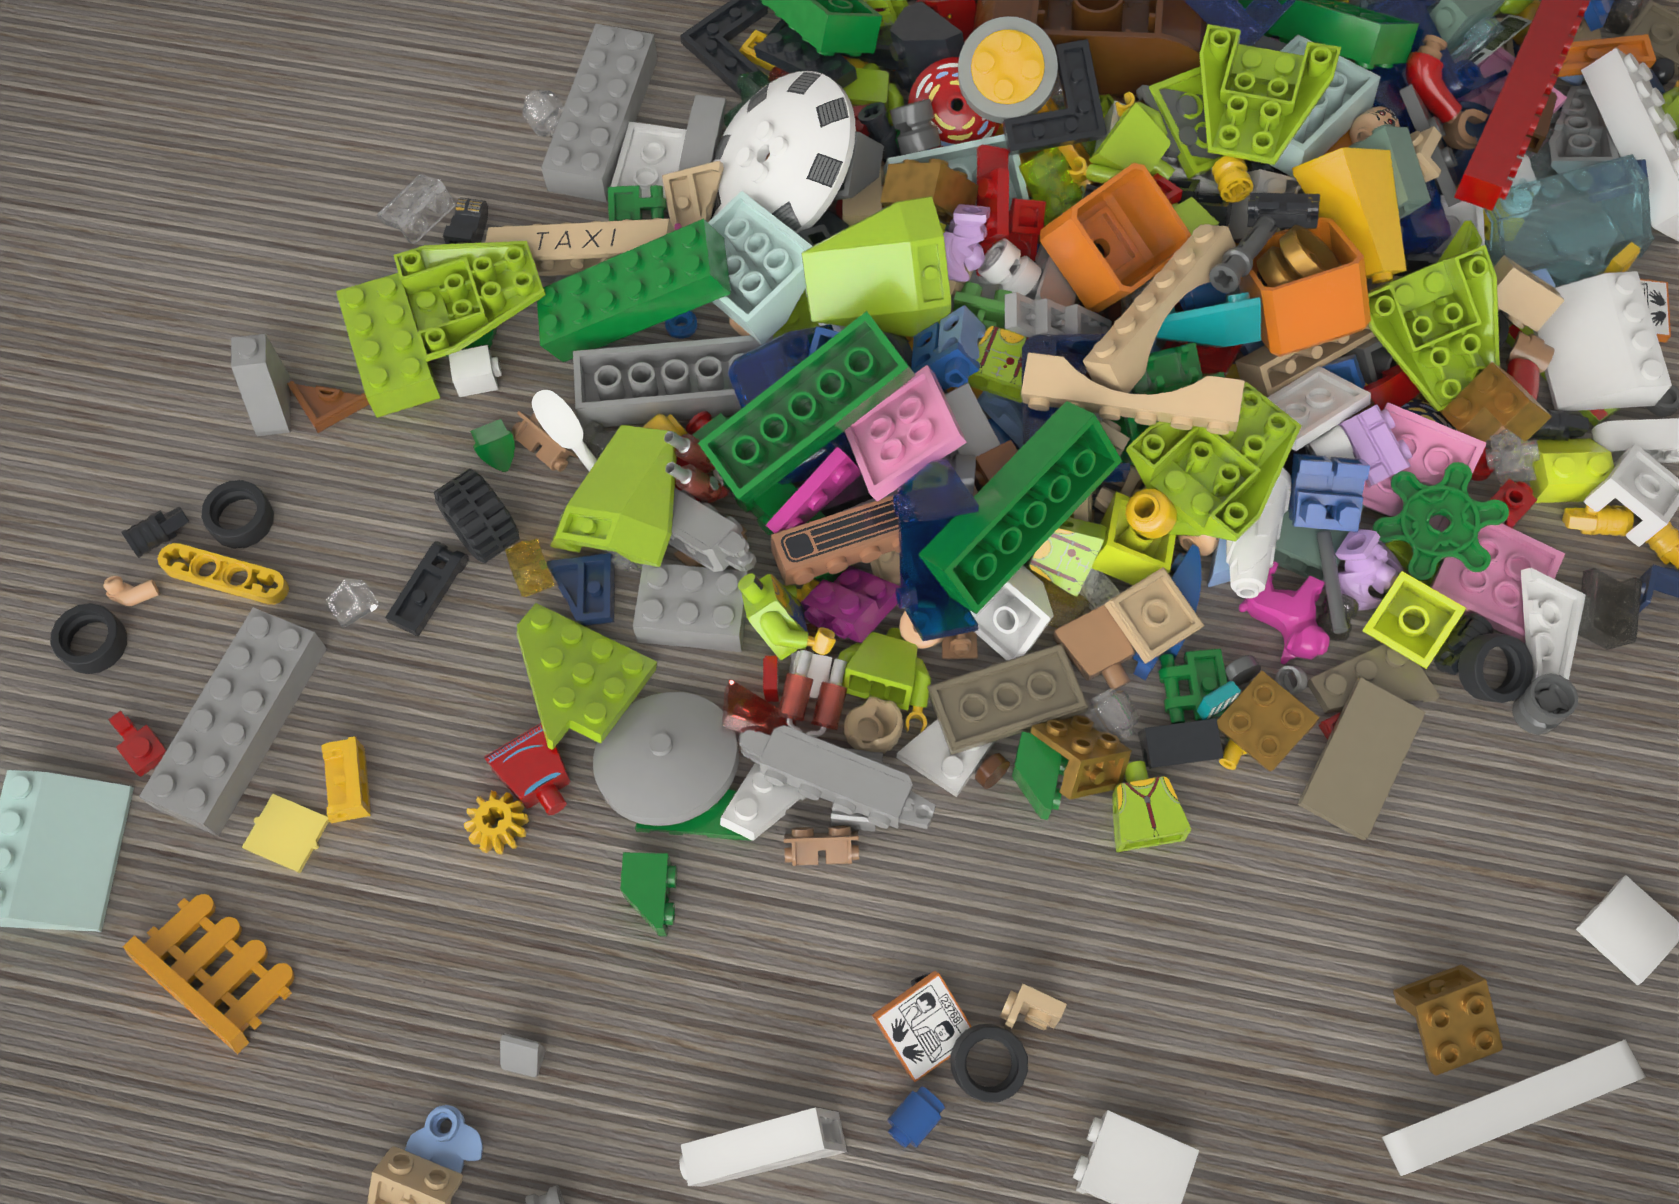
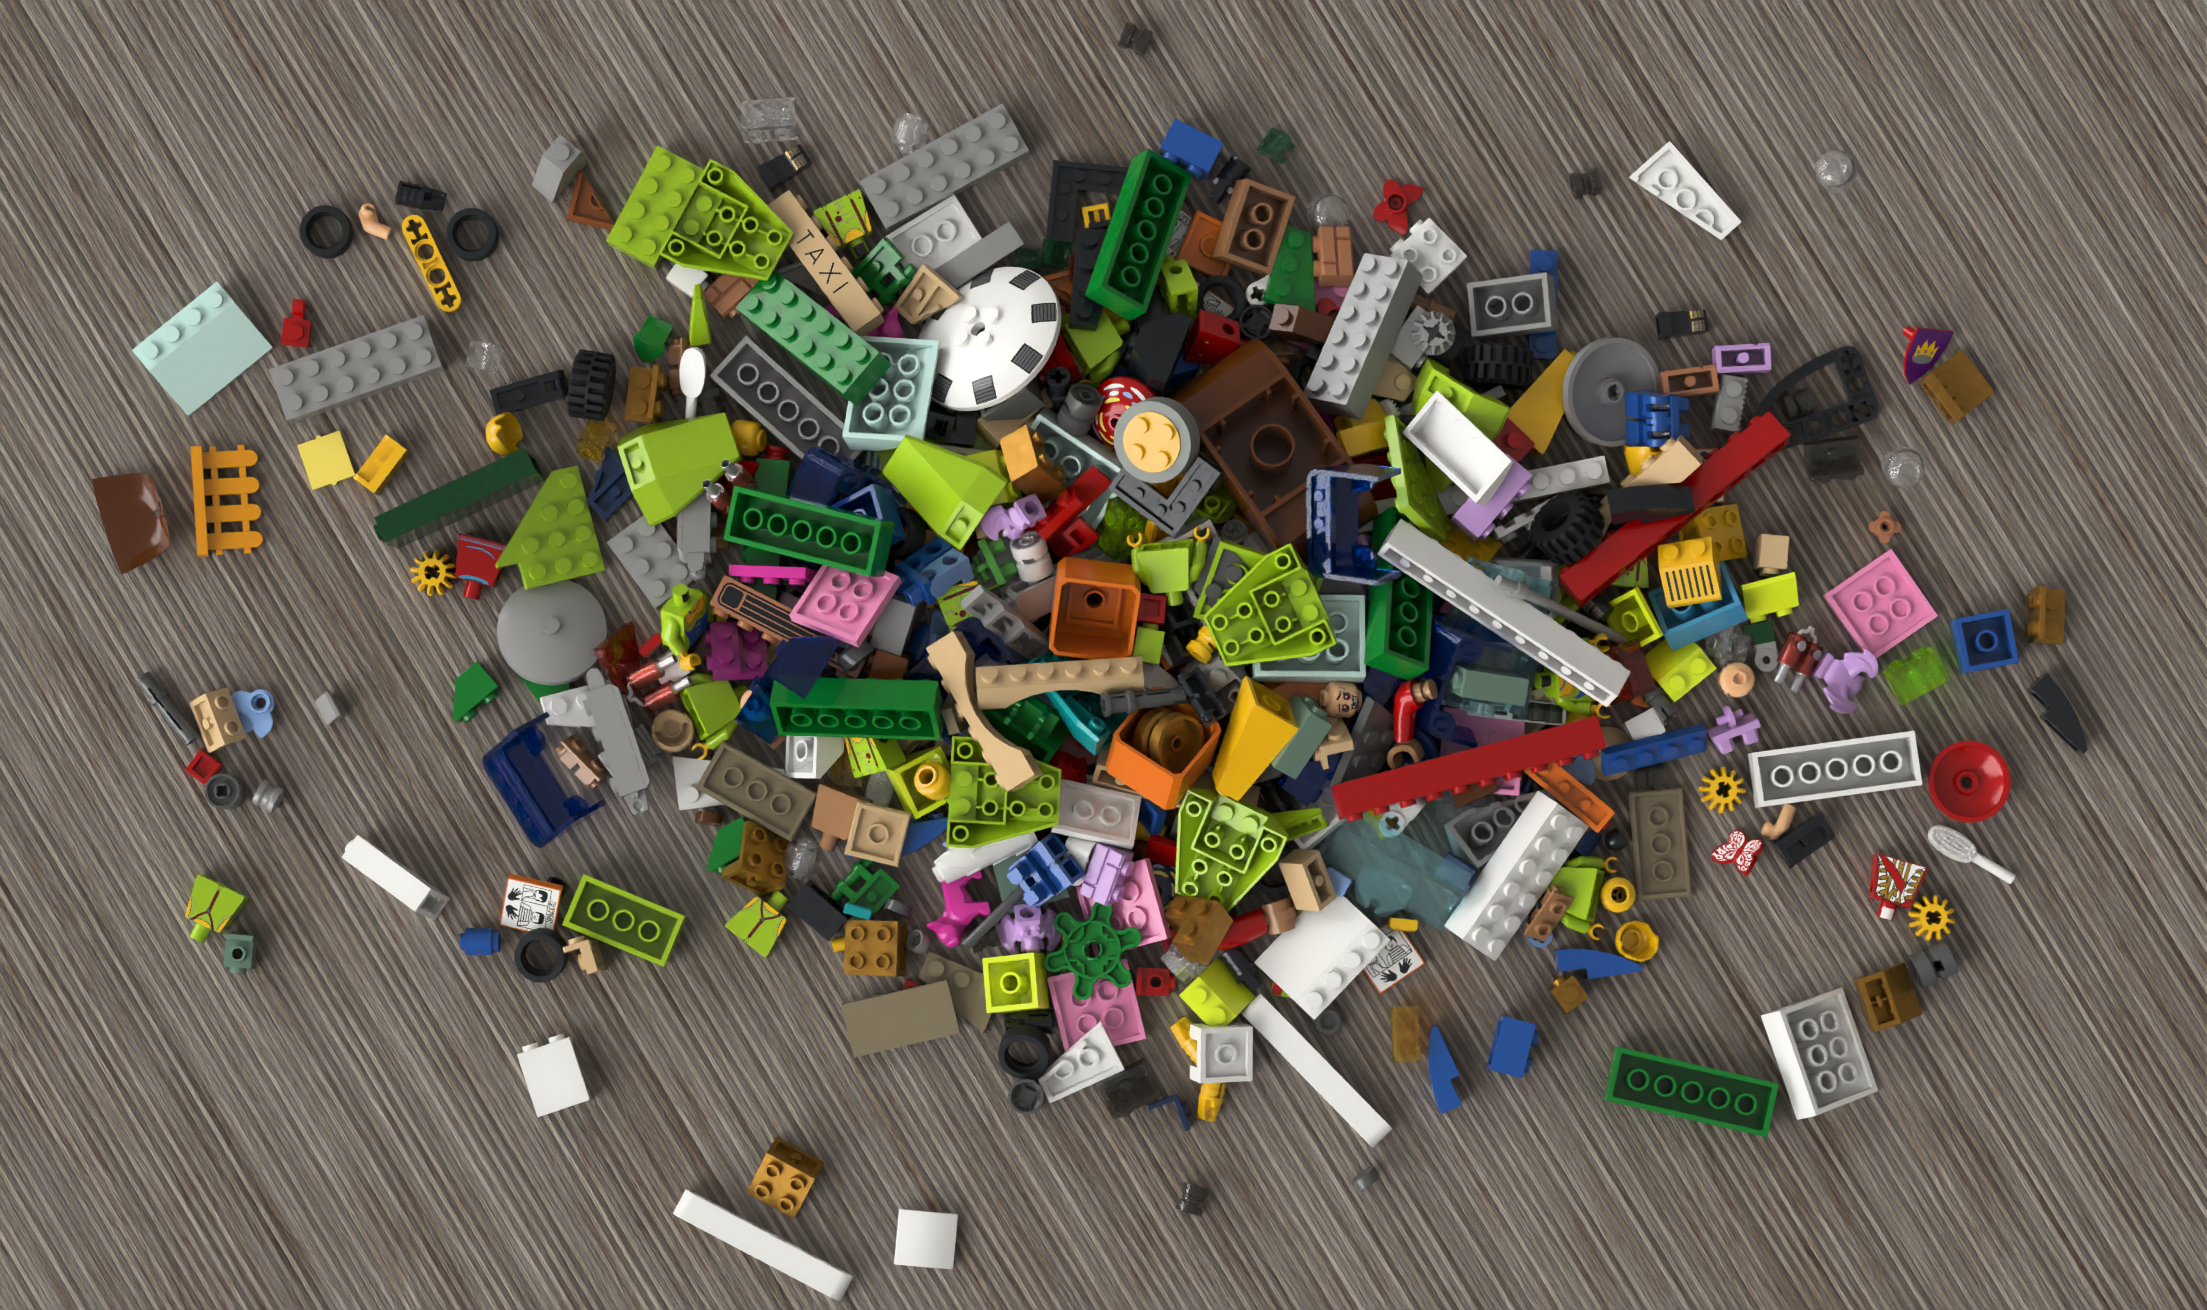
camera: 45 degrees right, 20 degrees up
(119, 1085) = (129, 519): none -> reddish brown piece
(436, 639) = (503, 434): none -> yellow hair
(449, 722) = (458, 499): none -> dark green brick
(514, 380) = (699, 321): none -> lime slope
(520, 347) = (728, 293): none -> nougat brick
(536, 486) = (644, 394): none -> pearl gold bracket
(562, 204) = (847, 223): none -> lime torso
(801, 920) = (531, 787): none -> clear blue windscreen
(1028, 939) = (624, 920): none -> lime brick

